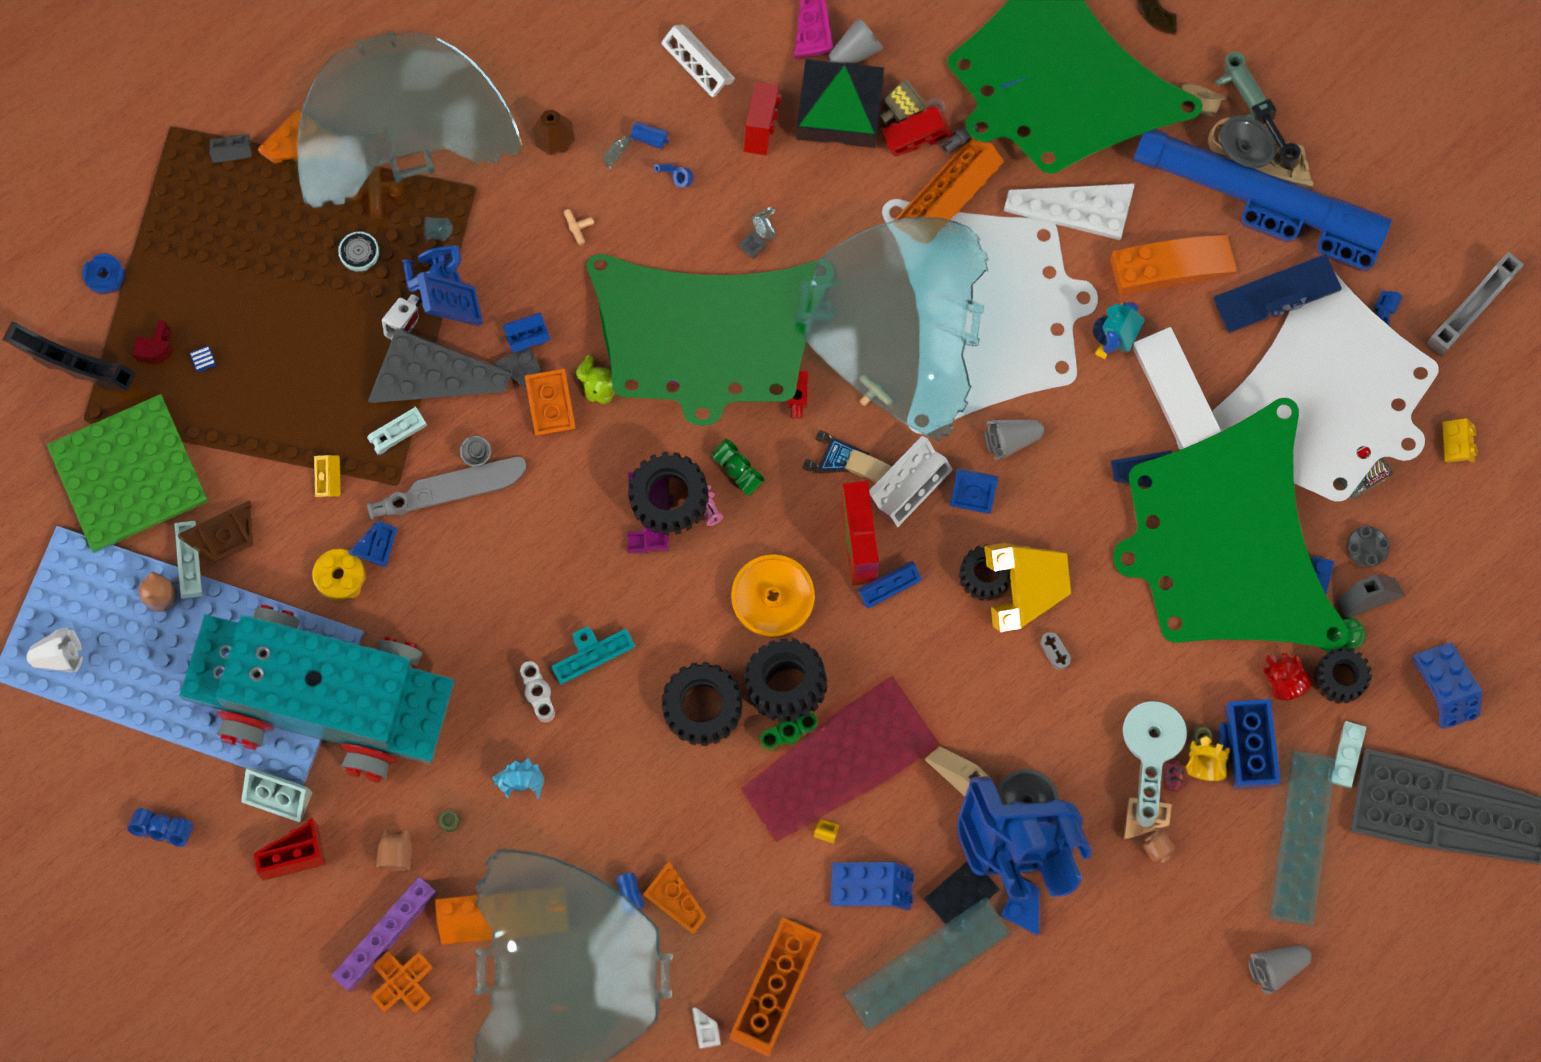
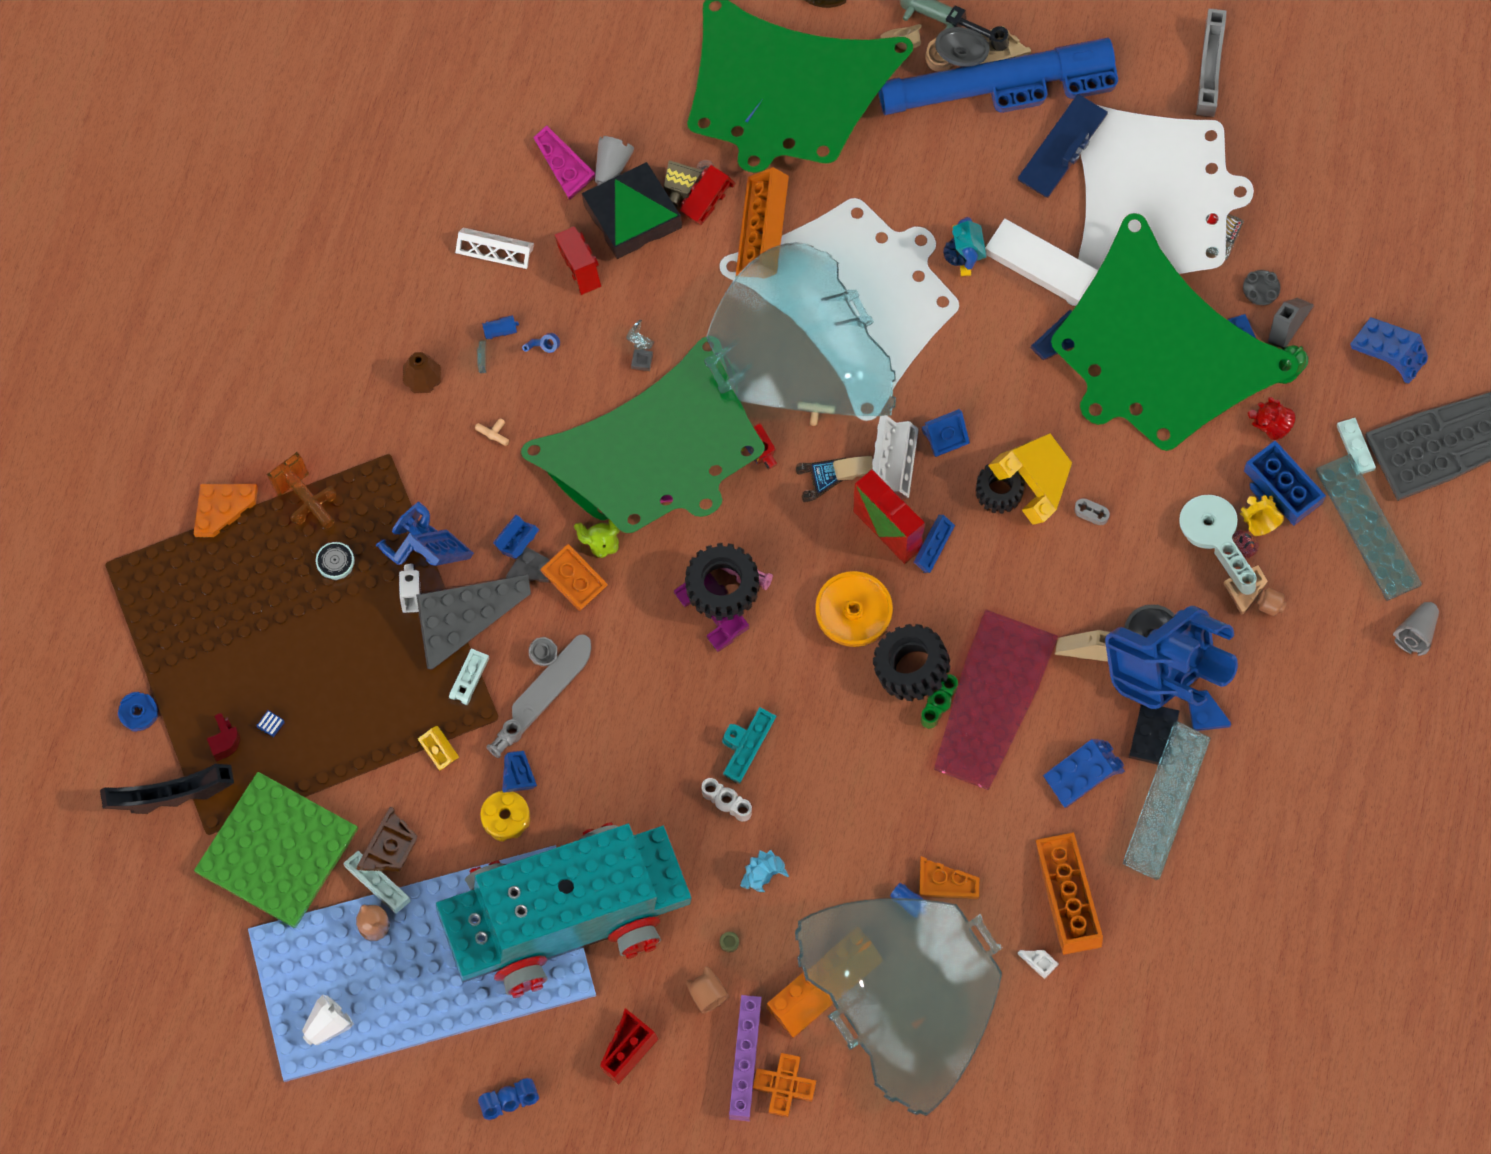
camera: 35 degrees left, 5 degrees down
(230, 148) = (169, 548): dark grey slope -> none
(275, 794) = (580, 1013): light aqua slope -> none
(392, 102) = (277, 431): clear light blue windscreen -> none
(437, 228) = (386, 502): clear light blue plate -> none
(697, 676) = (860, 747): black tyre -> none
(738, 467) = (755, 531): green piece -> none
(826, 831) = (1020, 756): yellow slope -> none
(957, 139) = (740, 181): dark grey pin -> none
(1010, 436) = (944, 375): light grey cone -> none
(1084, 208) = (874, 173): white wing -> none
(1171, 263) = (968, 173): orange slope -> none
(1201, 730) = (1242, 497): olive plate -> none
(1354, 663) = (1306, 403): black tyre -> none
(1387, 304) = (1148, 102): blue plate -> none
(1459, 440) = (1271, 169): yellow bracket -> none

